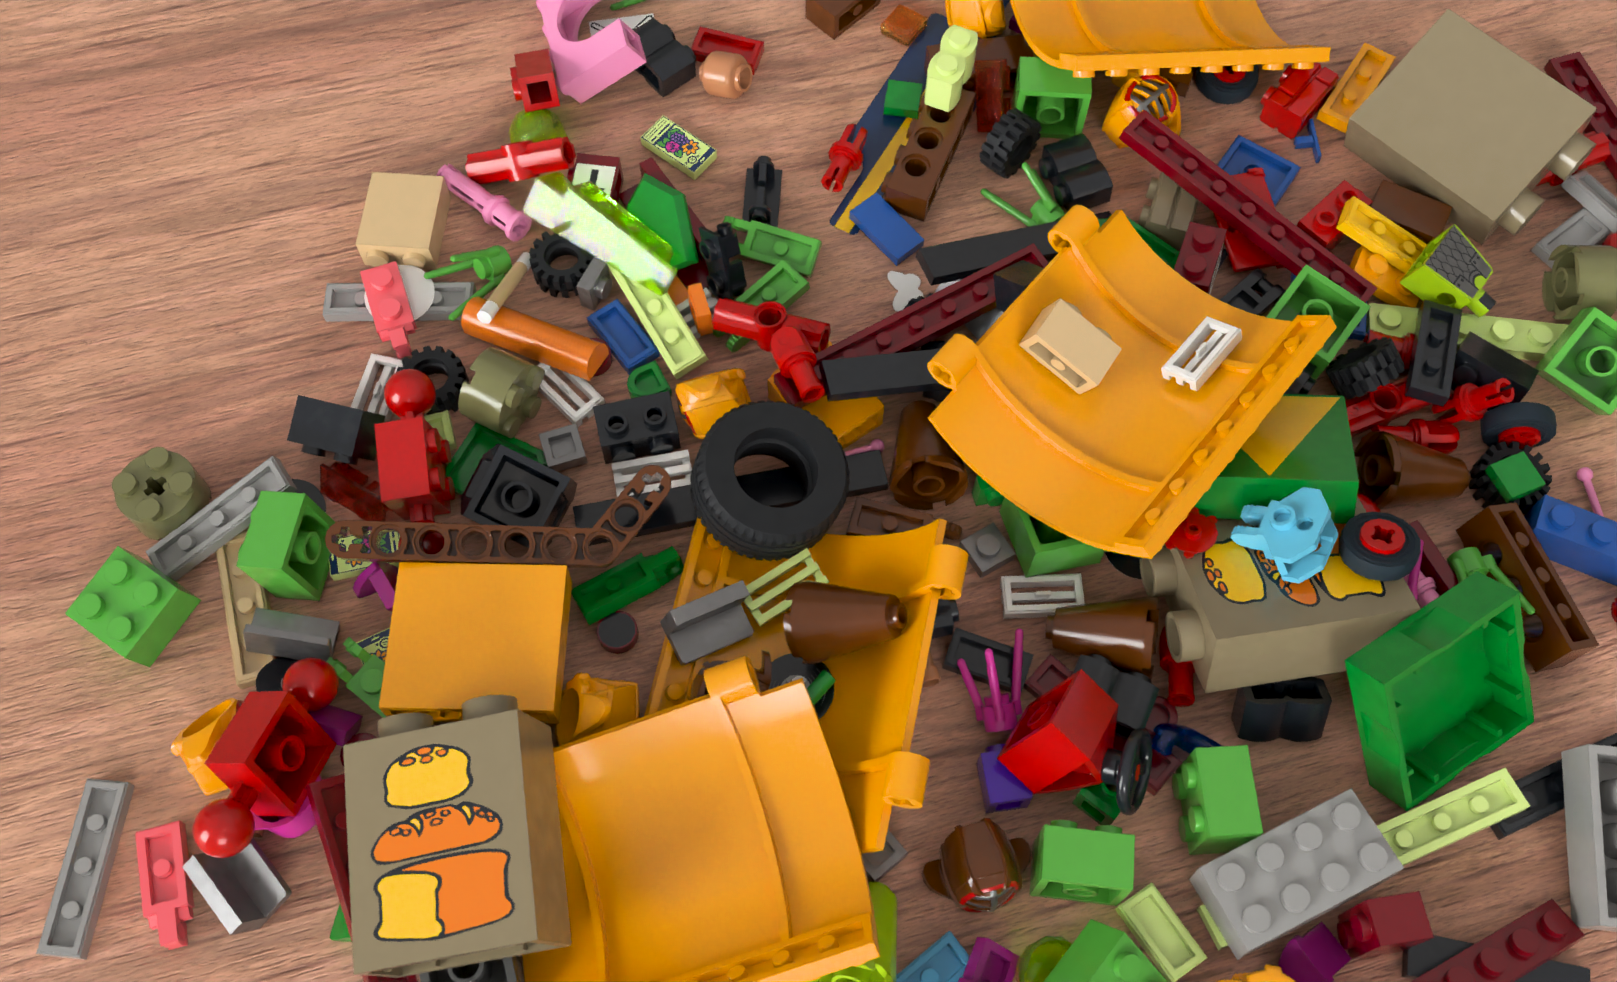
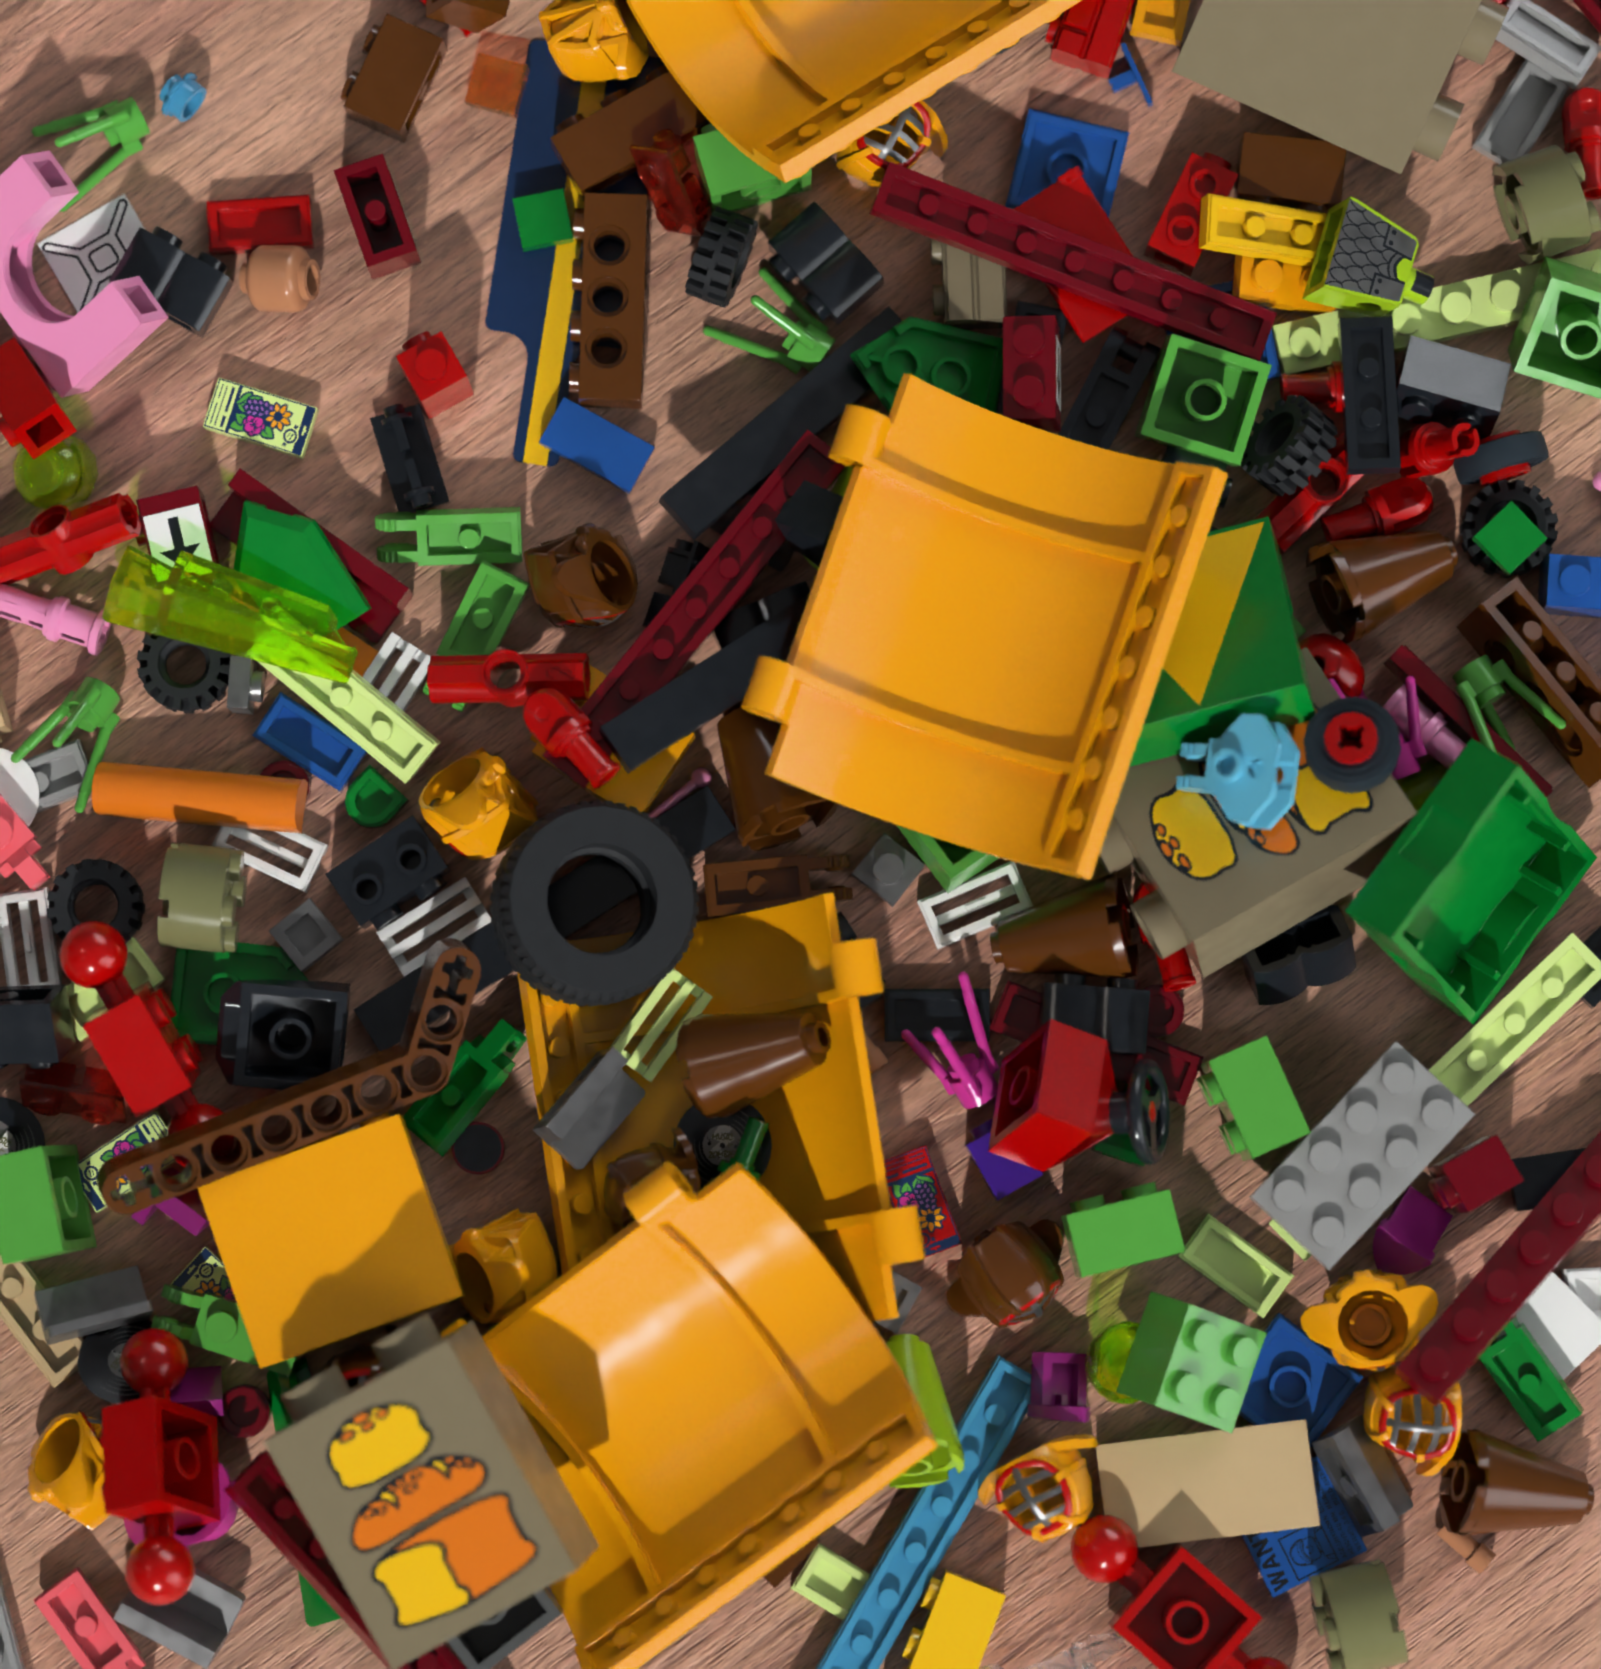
camera: 20 degrees left, 20 degrees up
(504, 289) = (132, 741): tan bar -> none
(700, 309) = (402, 679): orange tile -> none
(724, 277) = (406, 599): black hinge -> none
(799, 146) = (434, 373): none -> red brick
(800, 57) = (377, 216): none -> dark red brick
(844, 157) = (500, 360): red arm -> none
(845, 290) = (582, 578): none -> reddish brown piece
(907, 288) = (659, 528): white sticker -> none
(934, 815) = (915, 1182): none -> tile
(950, 68) = (603, 173): yellowish green brick -> none
(1070, 346) = (908, 606): tan brick -> none
(1179, 735) = (1197, 1030): clear blue arm -> none
(1194, 534) = (1137, 799): red piece -> none
(1207, 356) = (1091, 552): white tile -> none

